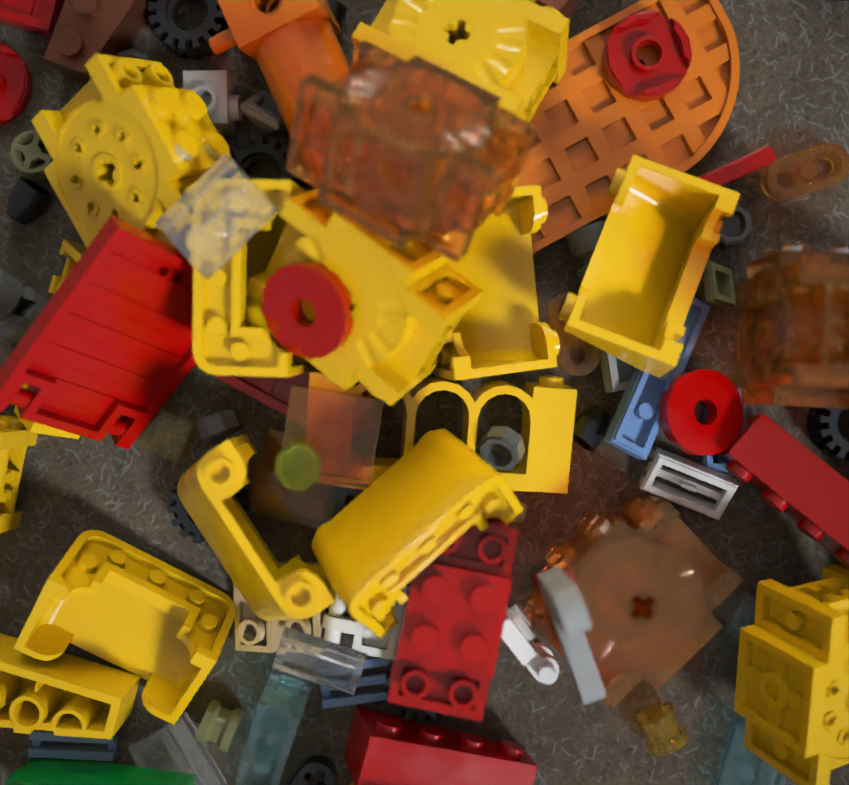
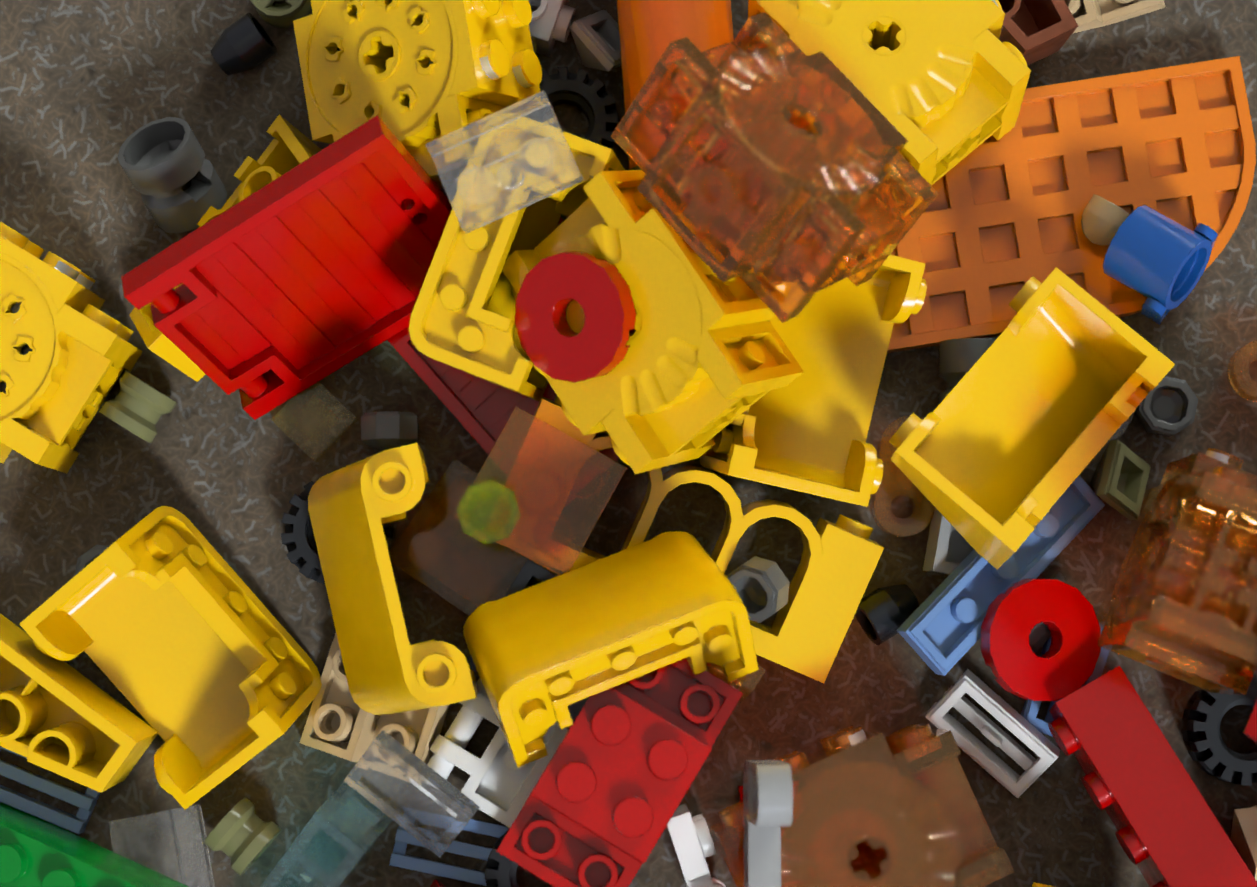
camera: 15 degrees right, 5 degrees down
(45, 469) = (137, 407): none -> olive wheel
(632, 77) = (1148, 117): red tile -> none
(650, 113) = (1102, 220): none -> tan hinge
(697, 125) = (1158, 259): none -> blue piece
(741, 167) = (1197, 335): red tile -> none

